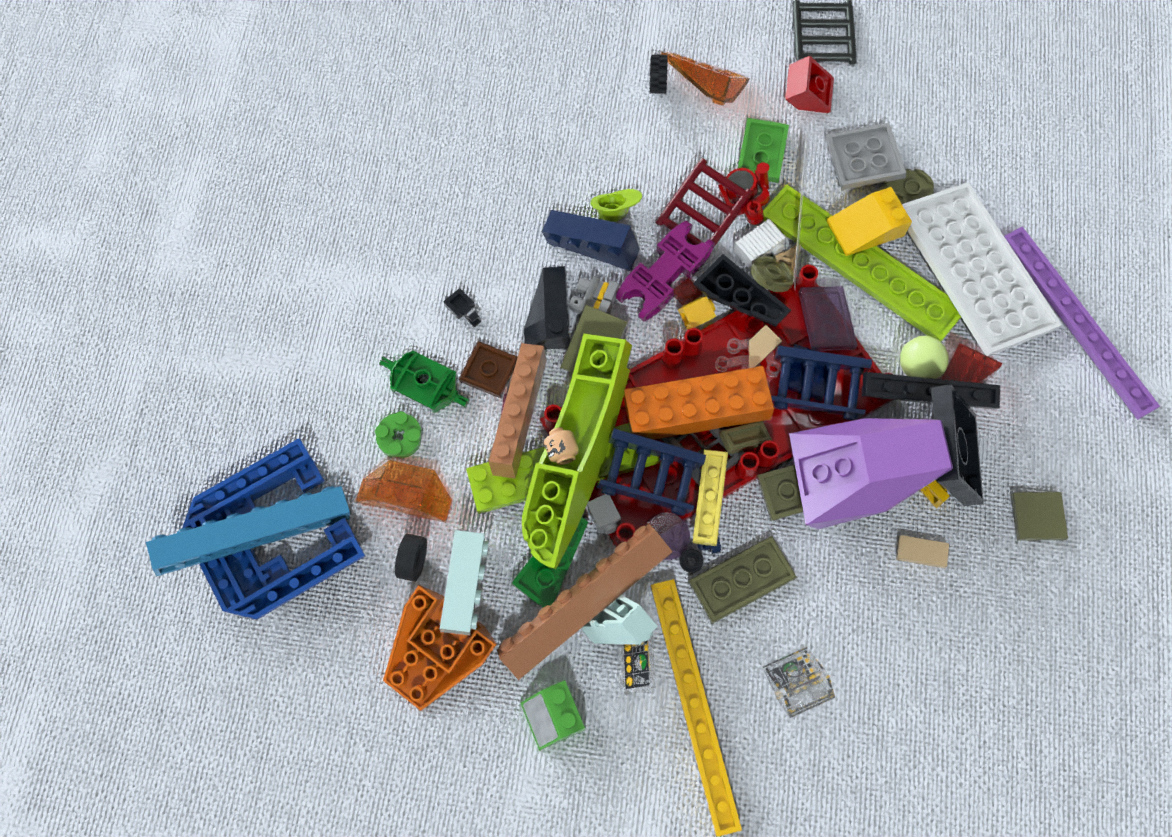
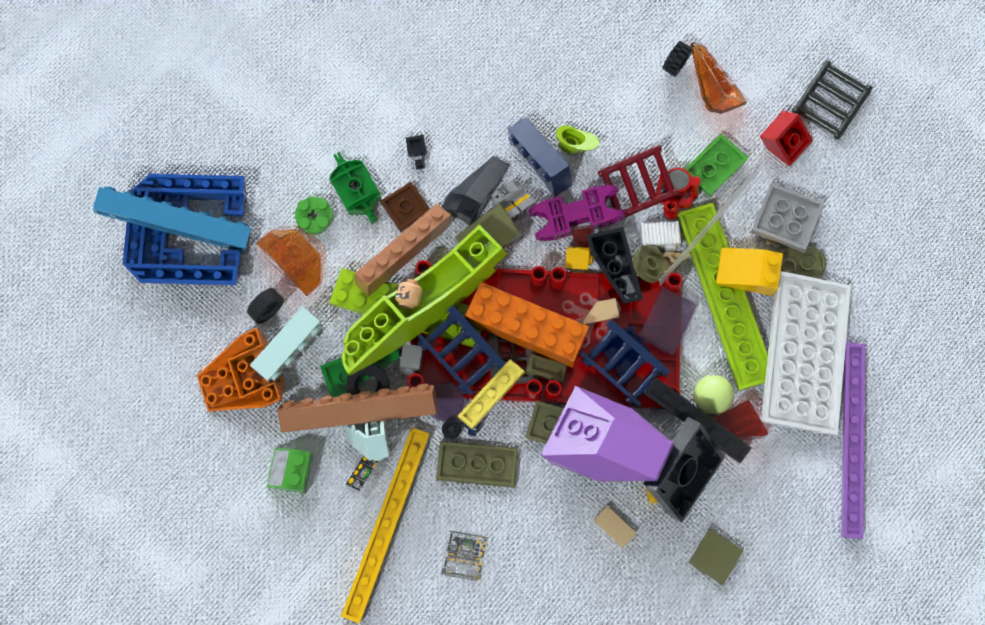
camera: 30 degrees right, 5 degrees up
(574, 550) = (373, 370): none -> black tyre

